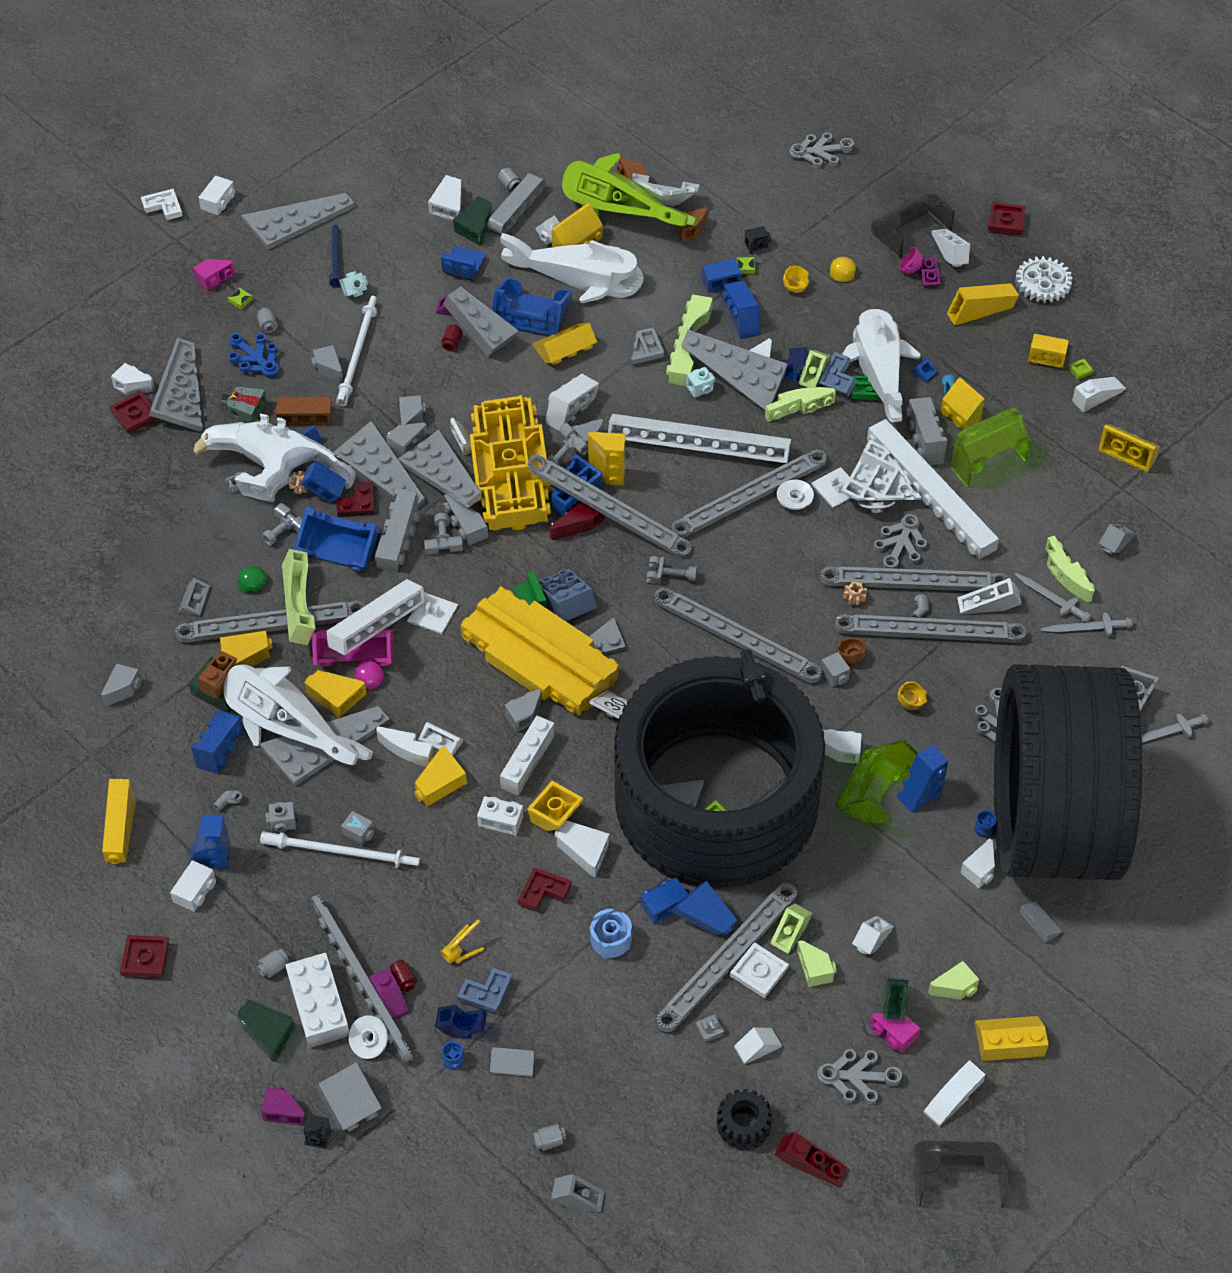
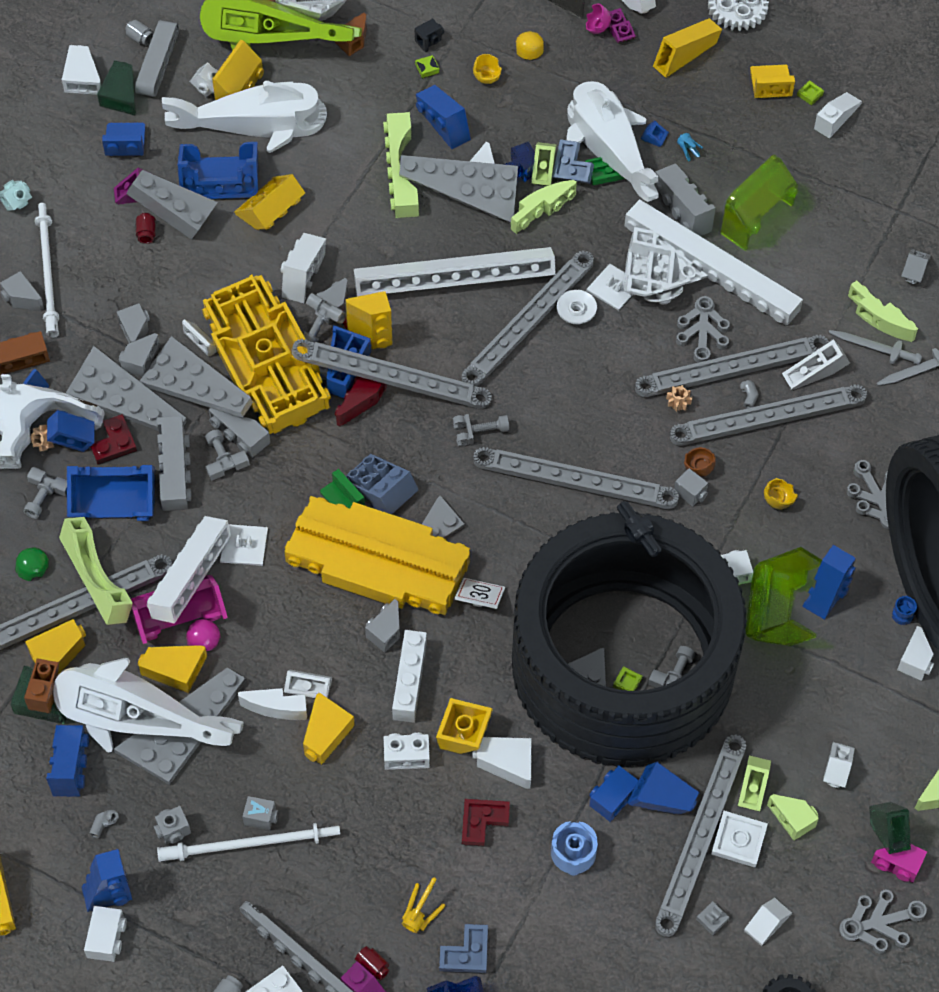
camera: 20 degrees left, 5 degrees up
(646, 346) = (358, 183): light grey wing -> none
(700, 382) = (431, 209): light aqua brick -> none
(720, 273) = (406, 83): blue brick -> none
(962, 405) = (711, 163): yellow slope -> none
(1128, 448) = (891, 165): yellow slope -> none

